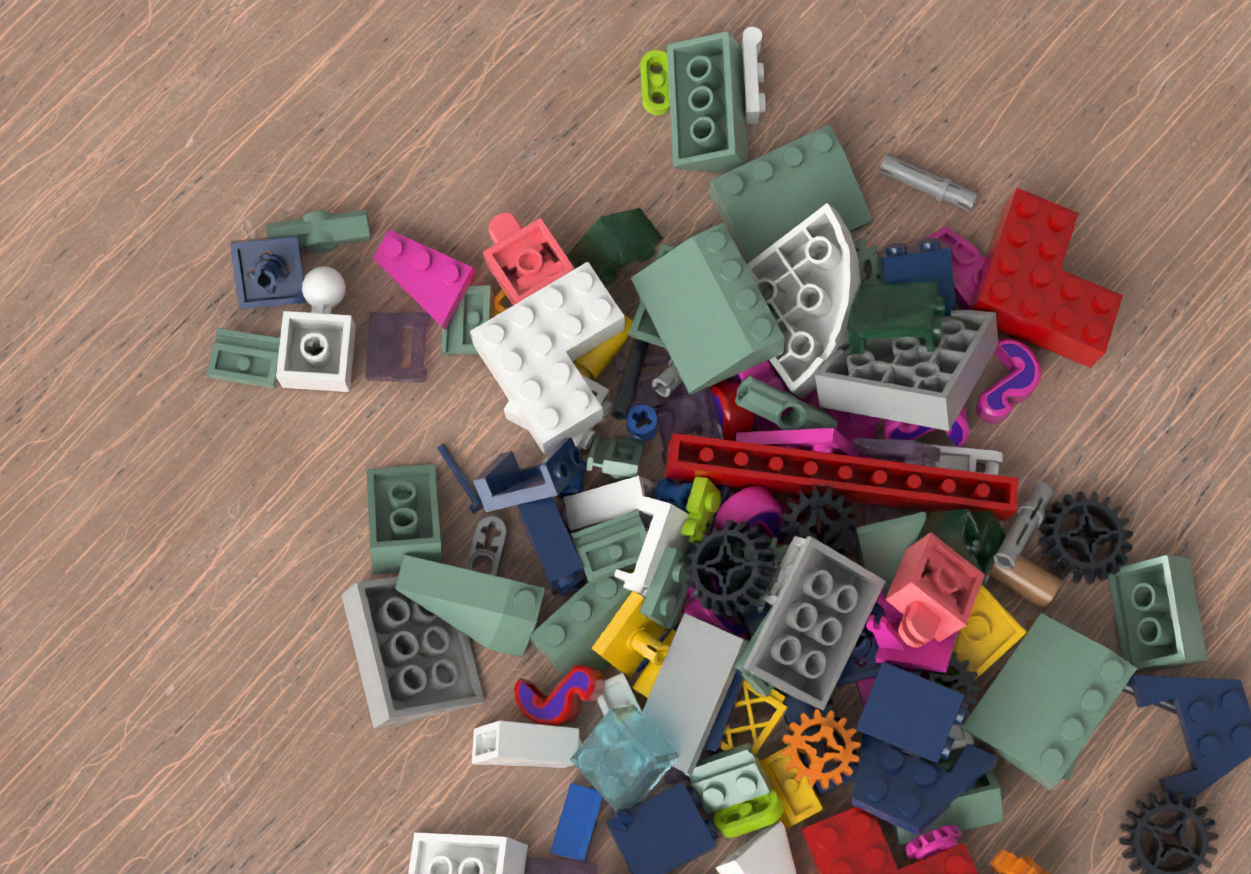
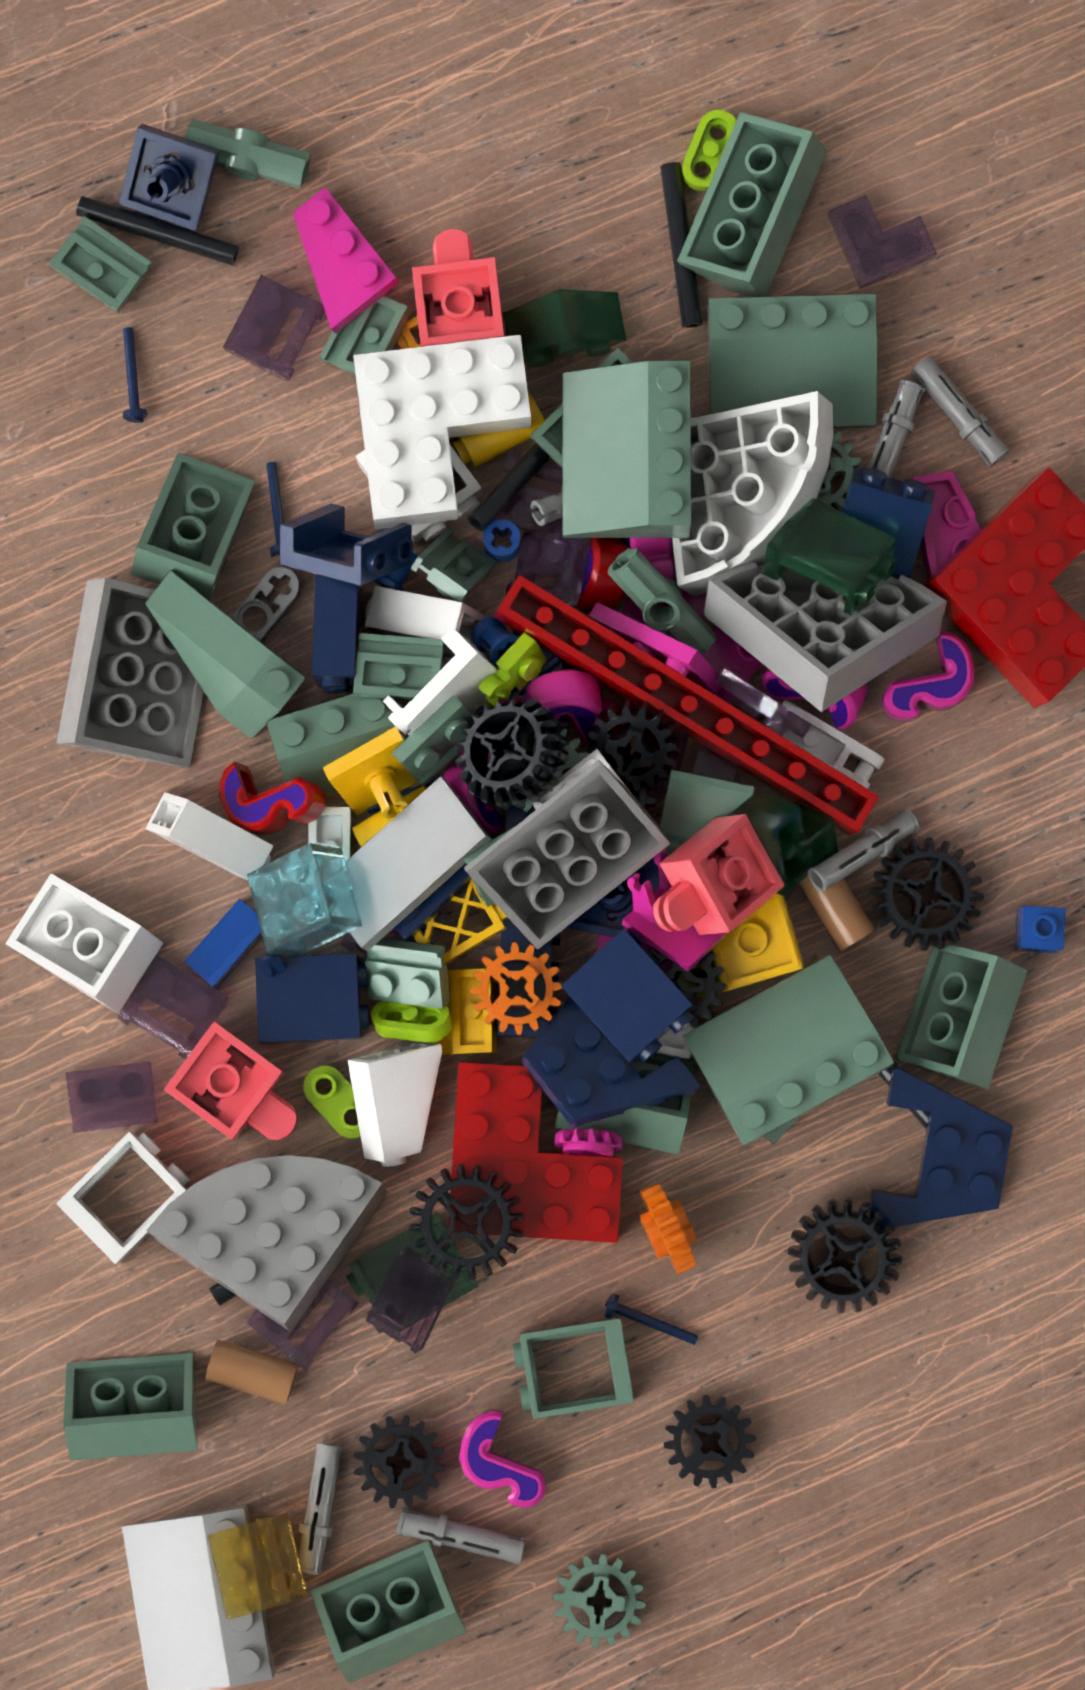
camera: 25 degrees right, 10 degrees up
(261, 317) = (157, 230): none -> black piece
(319, 329) = (173, 267): white brick -> none
(321, 455) = (135, 413): none -> dark blue piece
(664, 152) = (678, 233): none -> black piece
(753, 74) = (822, 191): white plate -> none
(811, 100) = (875, 252): none -> clear purple plate
(888, 210) = (896, 426): none -> light grey pin
(1182, 524) = (1040, 929): none -> blue brick

